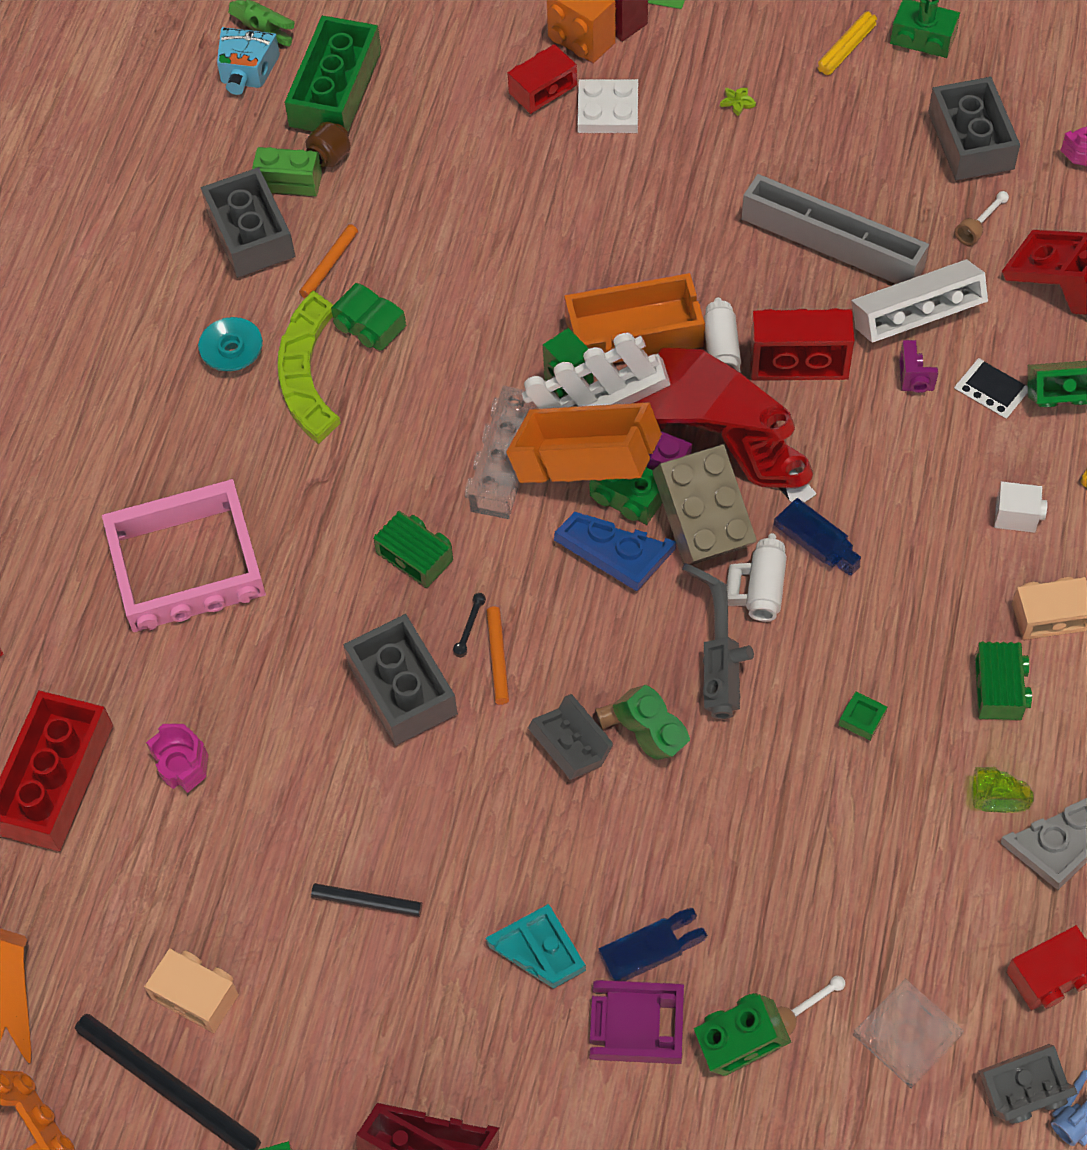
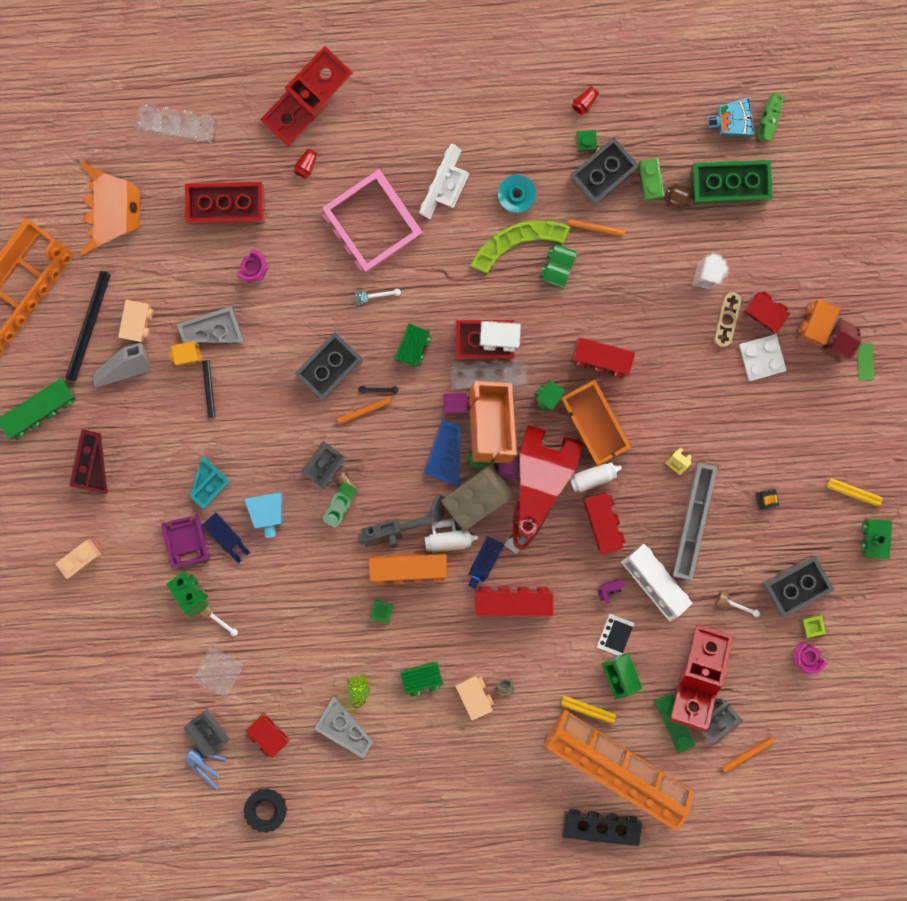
camera: 70 degrees right, 30 degrees up
(44, 632) = (305, 164): none -> red cone
(133, 229) = (584, 101): none -> red cone
(175, 433) = (447, 183): none -> white bracket
(192, 242) = (586, 140): none -> green plate
(259, 859) = (212, 328): none -> light grey wing
(263, 1029) = (124, 364): none -> light grey slope
(286, 906) = (185, 353): none -> light orange brick
(302, 606) = (362, 297): none -> hinge
(443, 438) = (468, 342): none -> red brick
(444, 395) = (500, 335): none -> white brick
(454, 107) = (710, 272): none -> white brick
(532, 284) = (602, 357): none -> red brick
(533, 510) = (456, 403): none -> magenta brick
(543, 143) = (736, 307): none -> tan beam
(625, 857) = (266, 512): none -> medium azure torso
(636, 381) = (535, 420): white fence -> none
(733, 235) = (678, 461): none -> light yellow tile
(738, 100) = (789, 436): lime plant -> none
(796, 643) = (408, 566): none -> orange piece
(826, 139) = (767, 499): none -> pearl dark grey piece
(898, 499) = (513, 602): none -> red brick
(1019, 507) = (533, 666): white brick -> none
(1040, 129) = (813, 626): none -> lime plate
(1047, 558) = (505, 687): none -> dark tan plate

